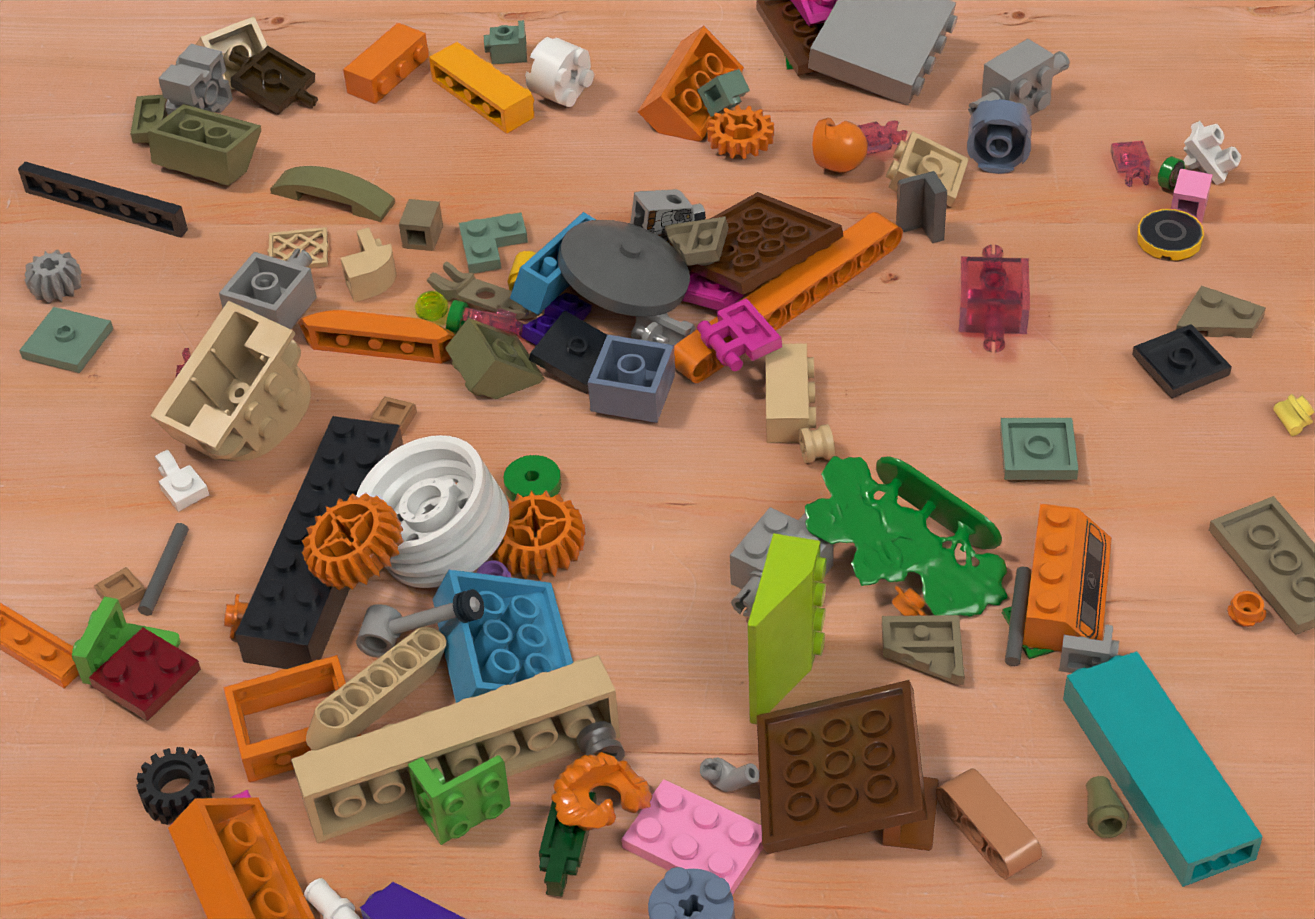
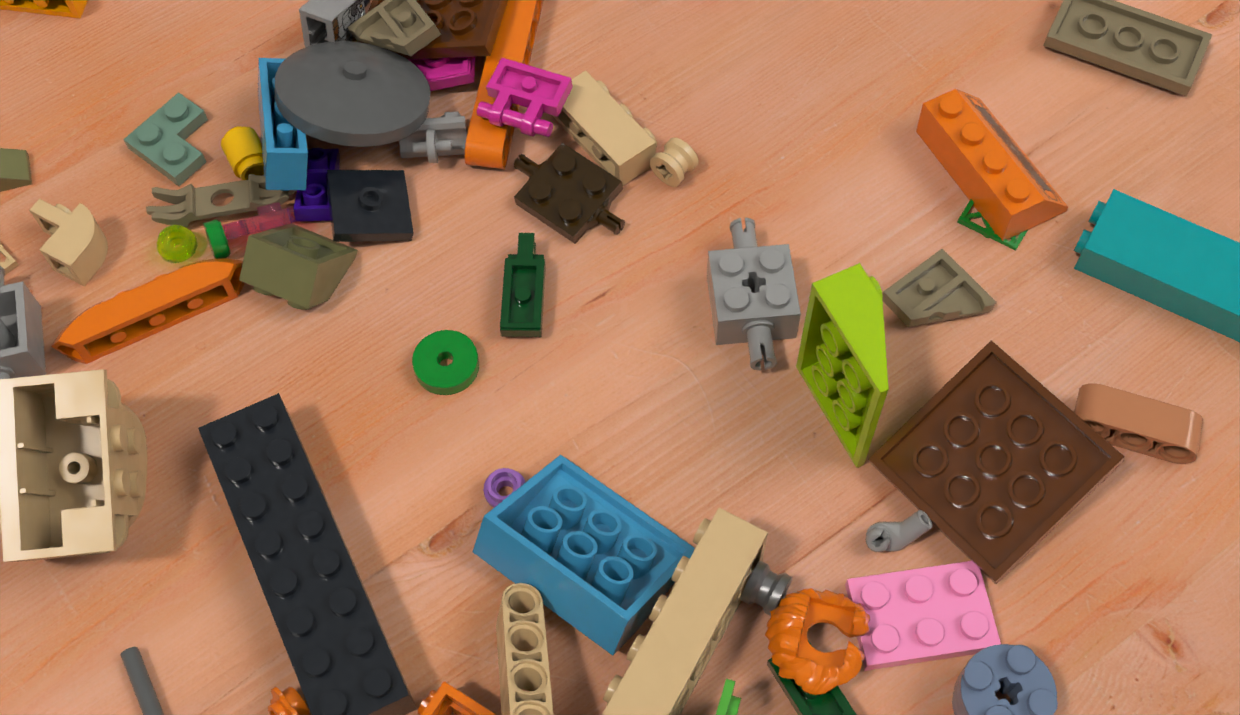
camera: 40 degrees left, 15 degrees up
(179, 485) = (84, 607): white plate -> none
(330, 547) = (365, 575): orange gear -> none
(385, 624) = (453, 617): light grey piece -> none
(395, 412) = (243, 383): medium nougat tile -> none
(421, 224) = (86, 163): dark tan brick -> none
(441, 521) = (366, 418): white wheel -> none
(557, 541) = (508, 395): orange gear -> none
(626, 464) = (523, 290): none -> dark green hinge
(632, 378) = (455, 200): sand blue brick -> none
(722, 423) = (569, 193): none -> dark brown plate
(897, 540) = (834, 209): green plant -> none
(909, 602) = (891, 264): orange plate -> none
(1018, 616) = (980, 217): dark grey bar -> none
(1038, 449) = (855, 53): sand green plate -> none
(1086, 652) = (1068, 216): light grey bracket -> none
(1104, 809) = (1203, 345): olive cone -> none
(1247, 608) = (1136, 96): orange plate -> none

